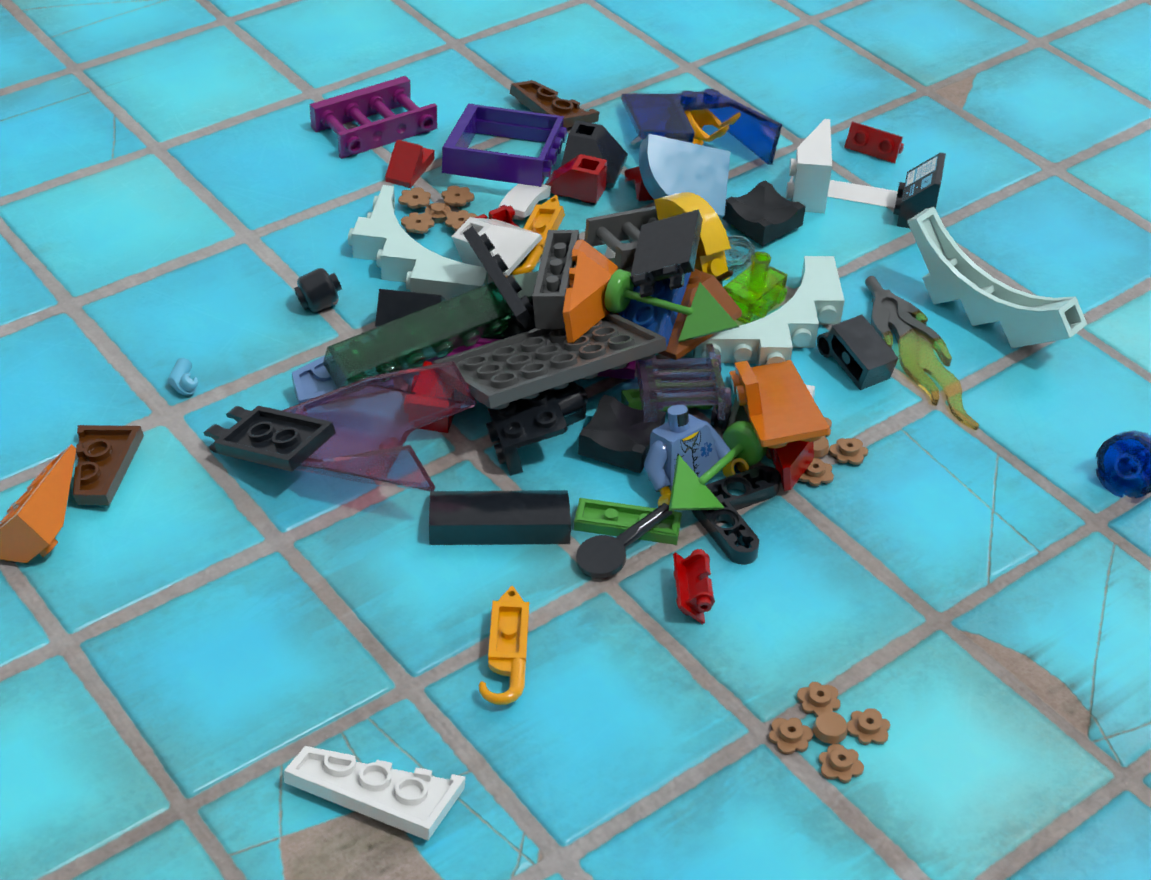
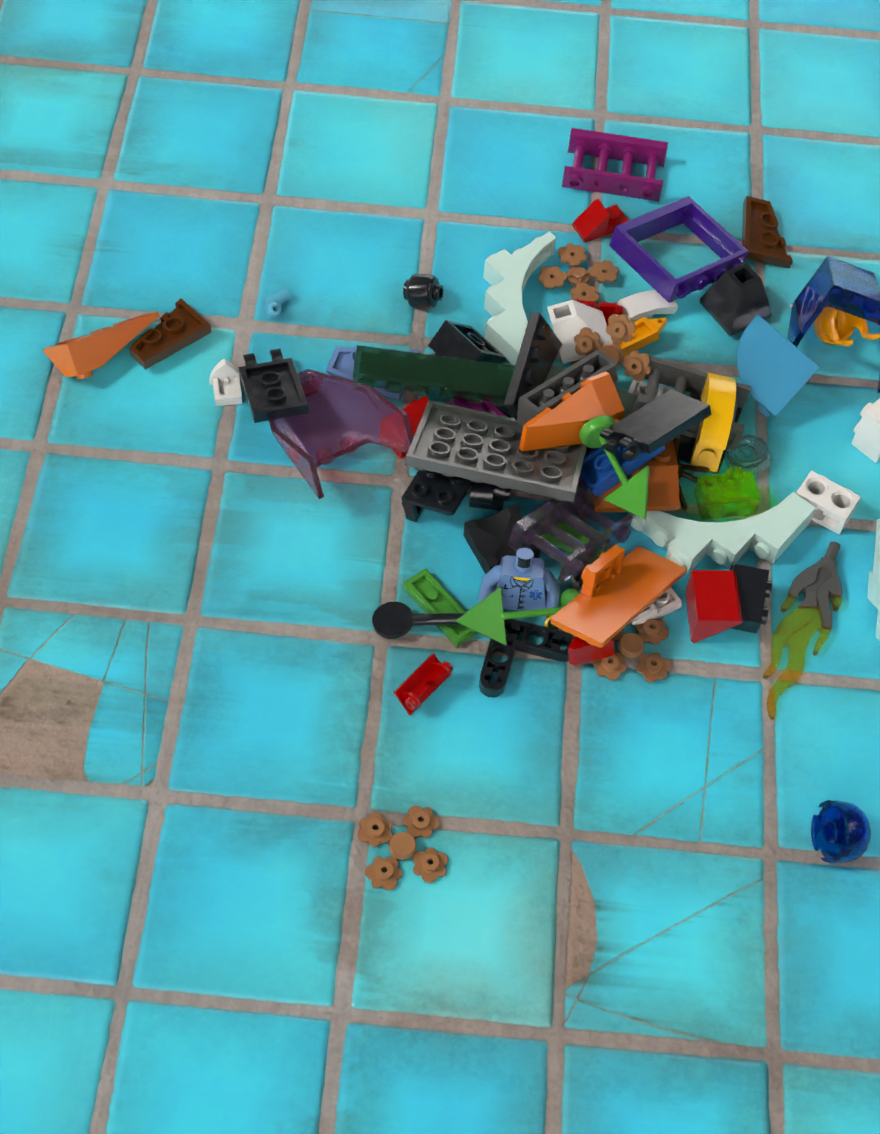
camera: 40 degrees right, 15 degrees up
(210, 469) = (226, 384): none -> white tile
(392, 796) = (102, 674): white wing -> none
(499, 517) = (363, 543): black slope -> none
(508, 646) = (270, 636): light orange plate -> none
(549, 217) = (612, 349): none -> medium nougat plant
(580, 179) = (704, 315): red slope -> none
(763, 213) = (814, 433): black brick -> none
(842, 245) = (832, 502): none -> white brick
(844, 370) = (712, 603): none -> red slope

